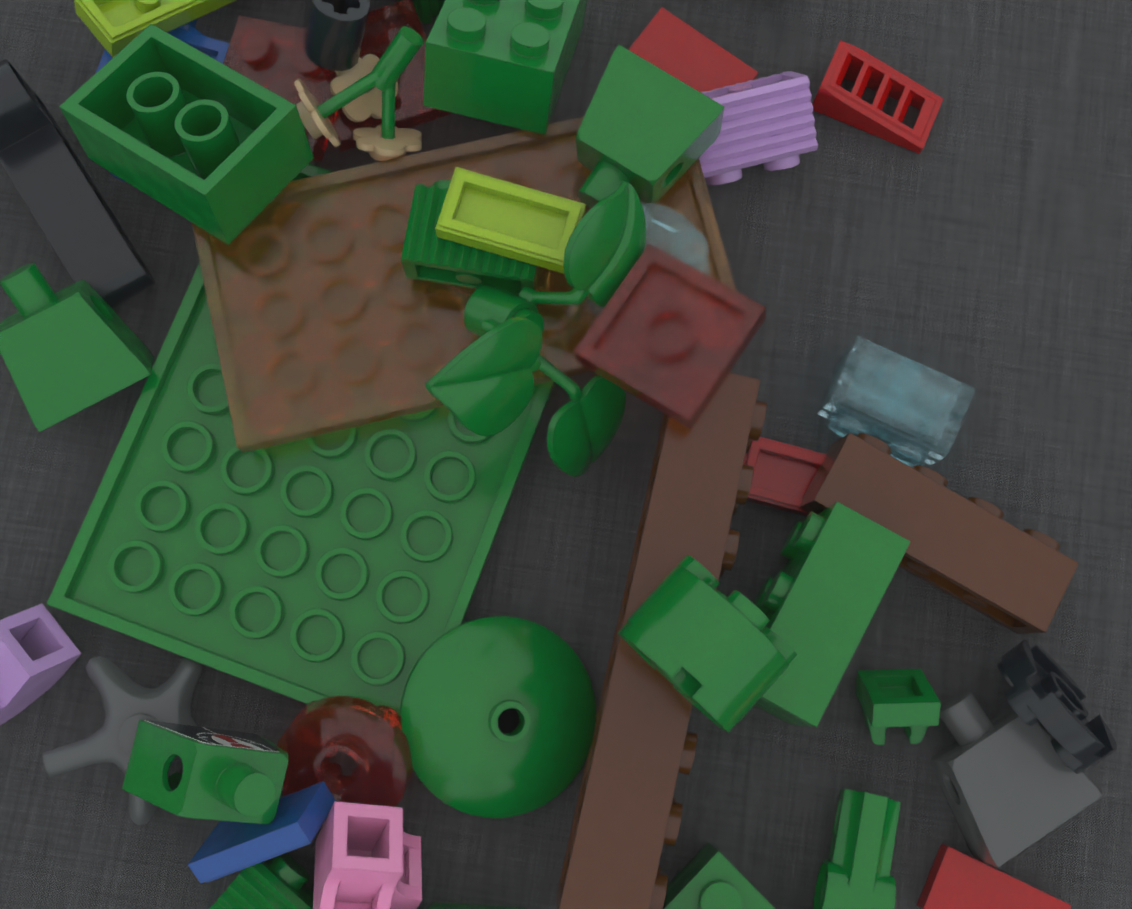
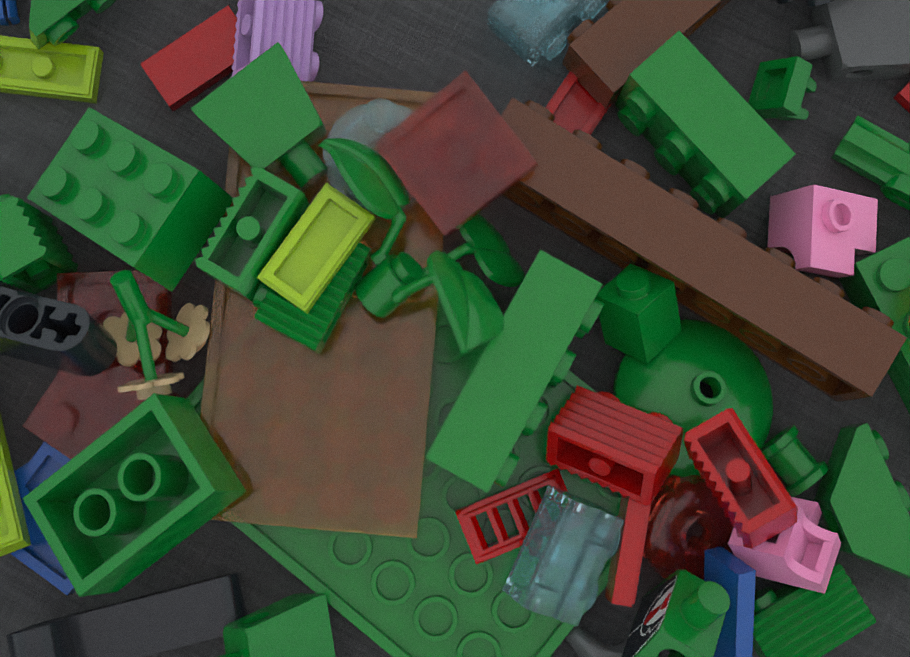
camera: 70 degrees left, 5 degrees up
(259, 509) = (471, 528): none -> red slope
(263, 616) = (563, 556): none -> clear light blue brick
(298, 688) = (627, 561): none -> red tile
(407, 629) = (614, 444): none -> red brick
(407, 783) = (740, 478): none -> red brick
(443, 485) = (514, 371): none -> green brick
(464, 857) = (793, 461): none -> green bush
(506, 146) = (252, 231): none -> green brick
(572, 614) = (639, 313): none -> green brick
(708, 643) = (718, 209): green brick -> none
(748, 803) = (823, 228): none -> bright pink brick

